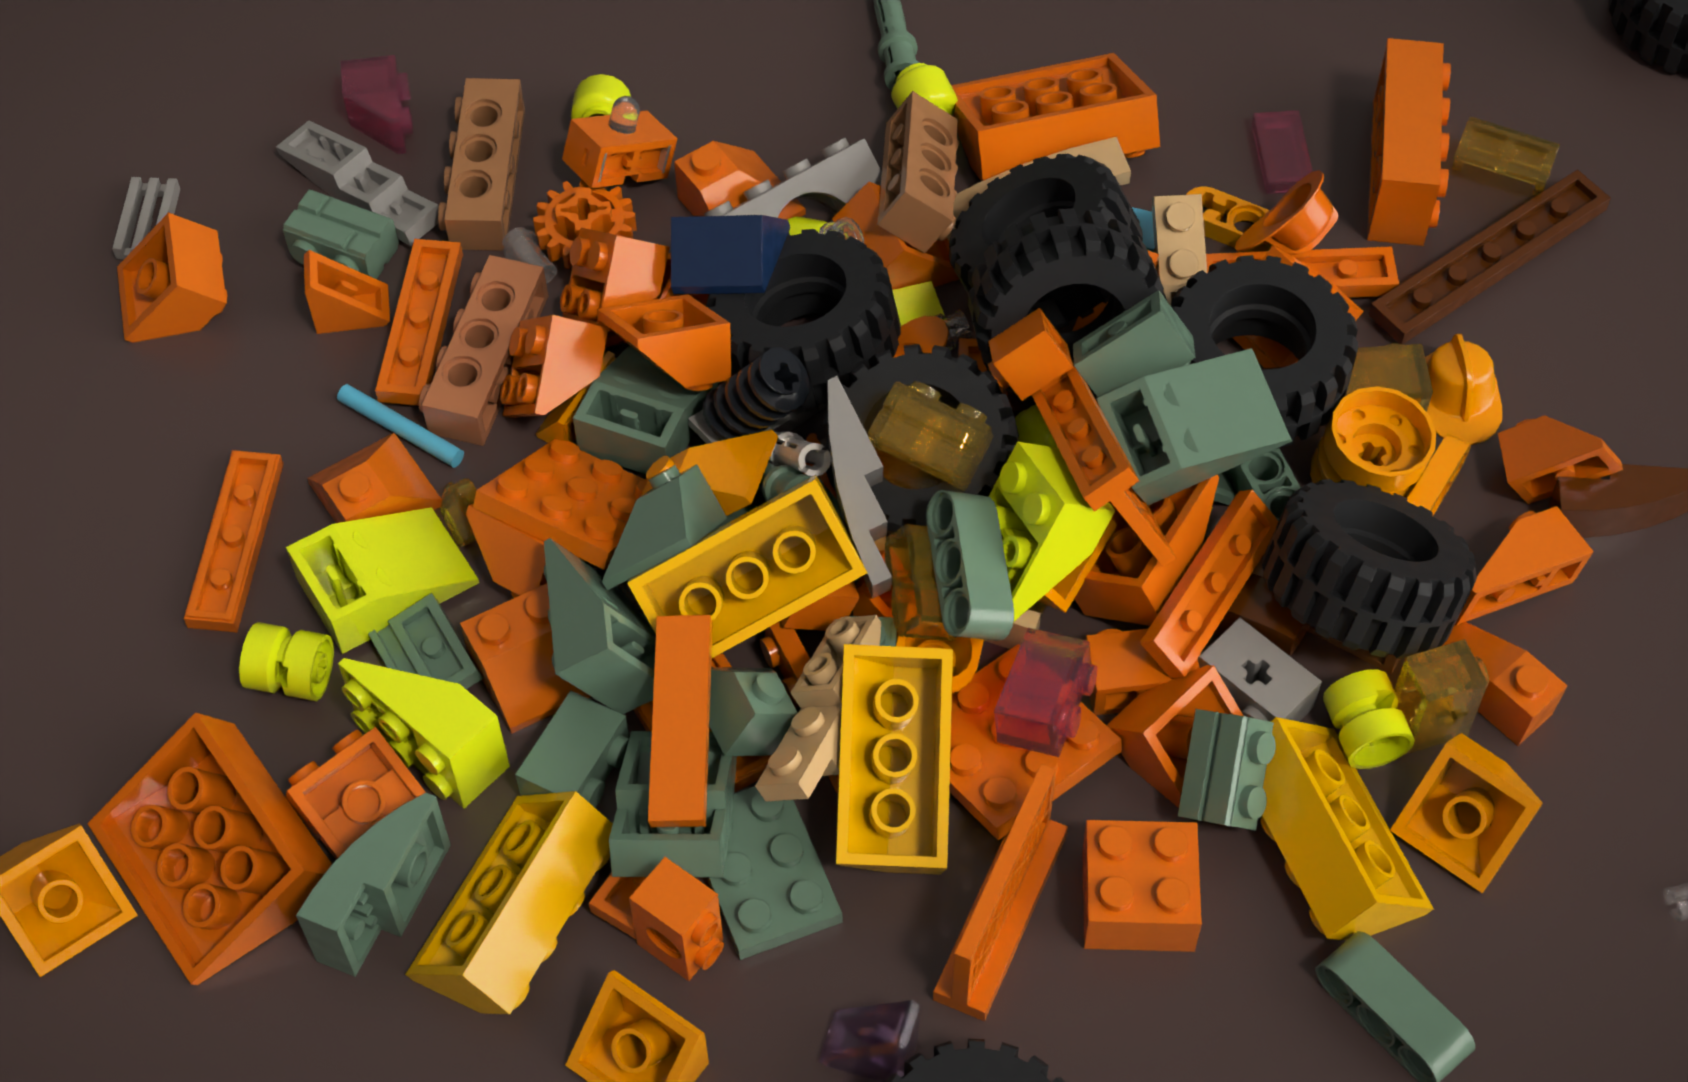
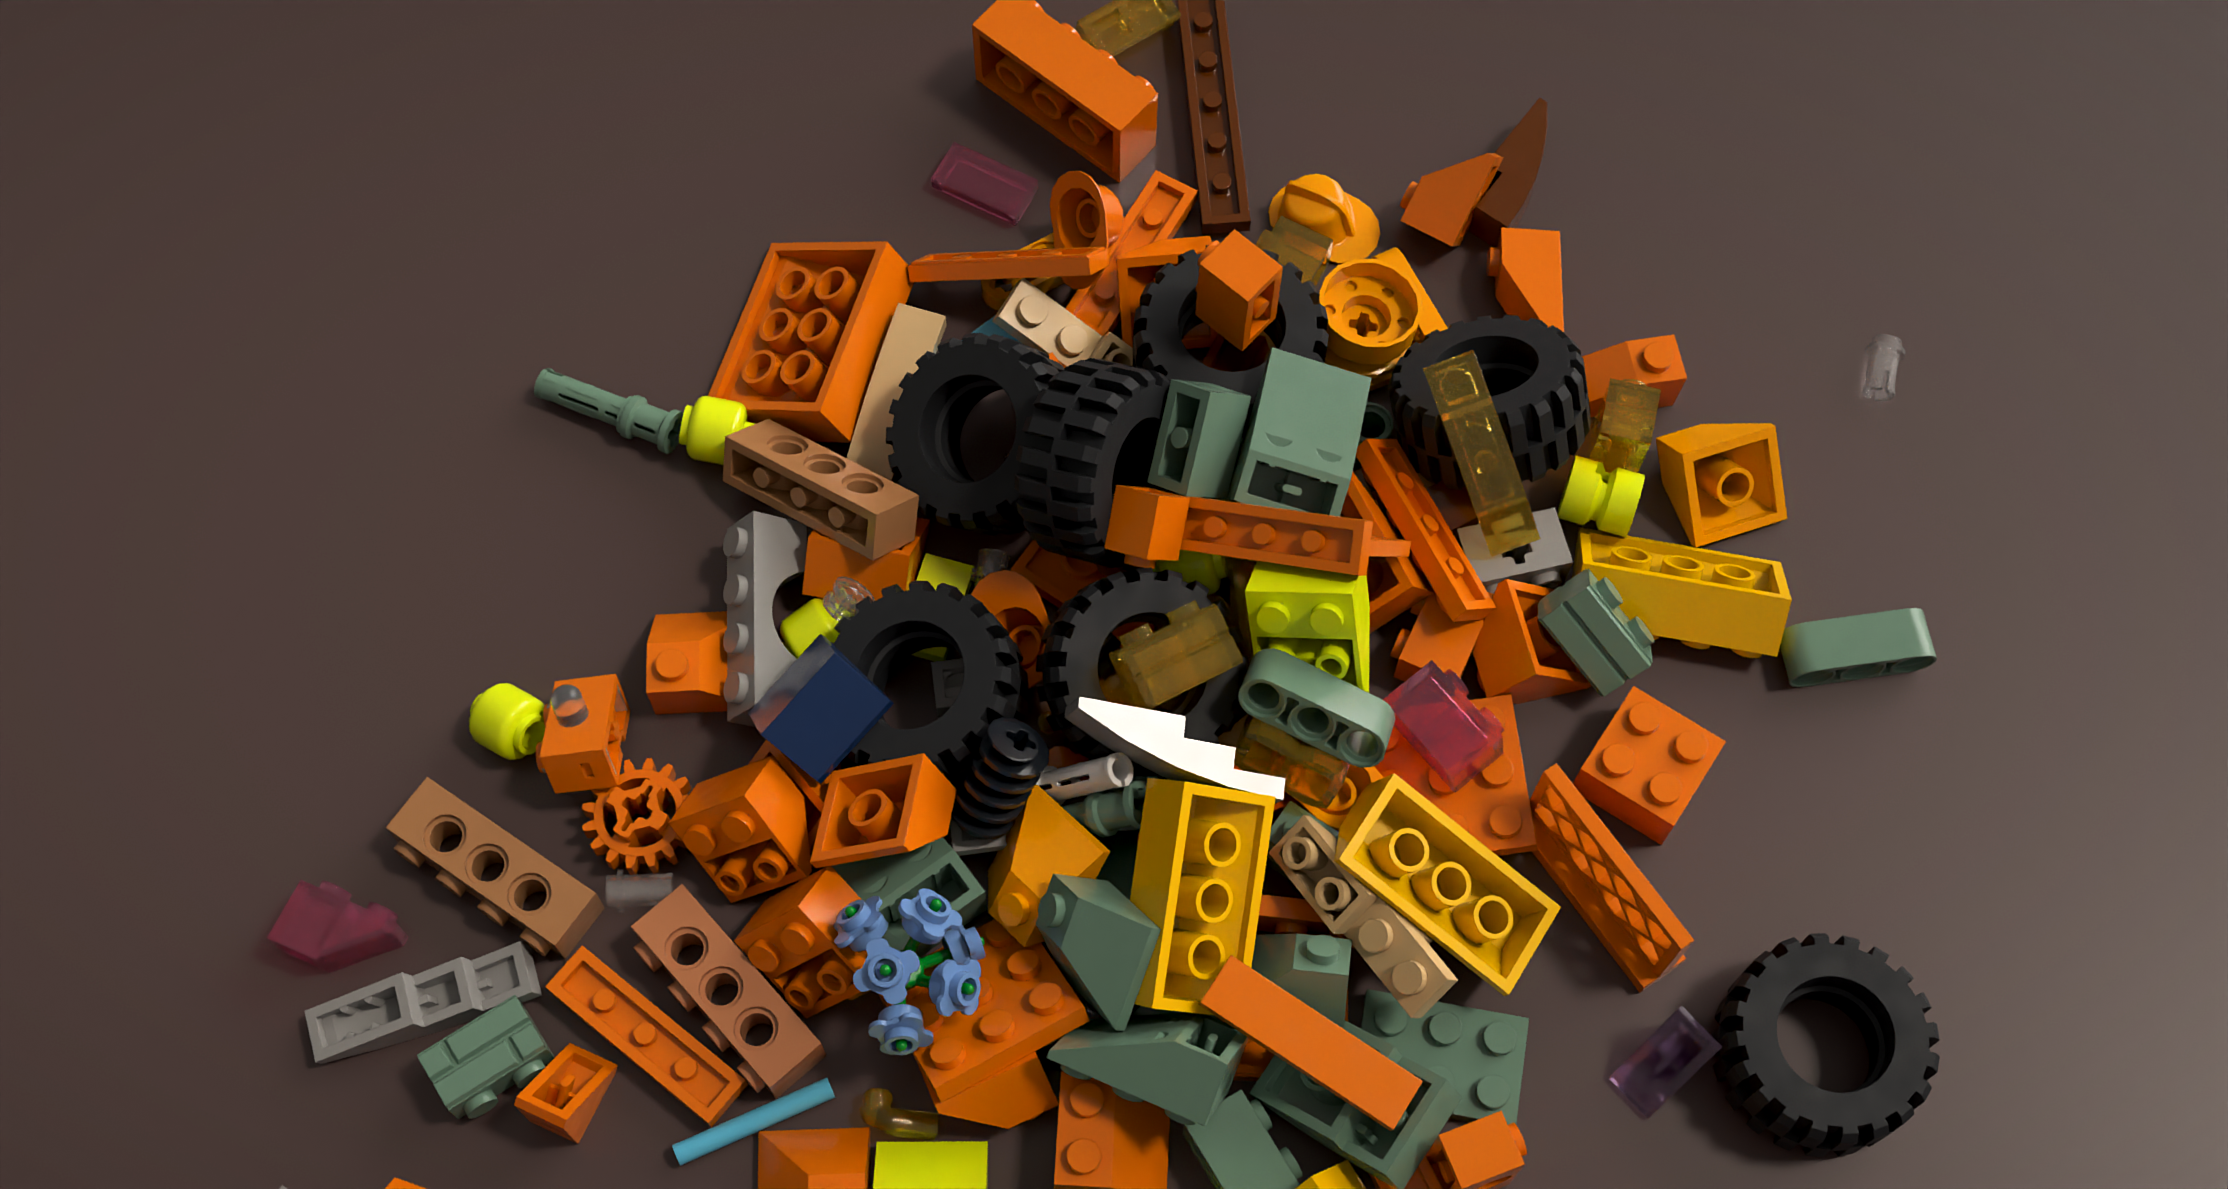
camera: 60 degrees left, 10 degrees up
(562, 446) = (894, 972): none -> medium blue plant
(1211, 186) = (1009, 264): none -> orange tile
(1278, 293) = (1237, 289): none -> orange brick
(1289, 563) = (1482, 453): none -> clear yellow slope

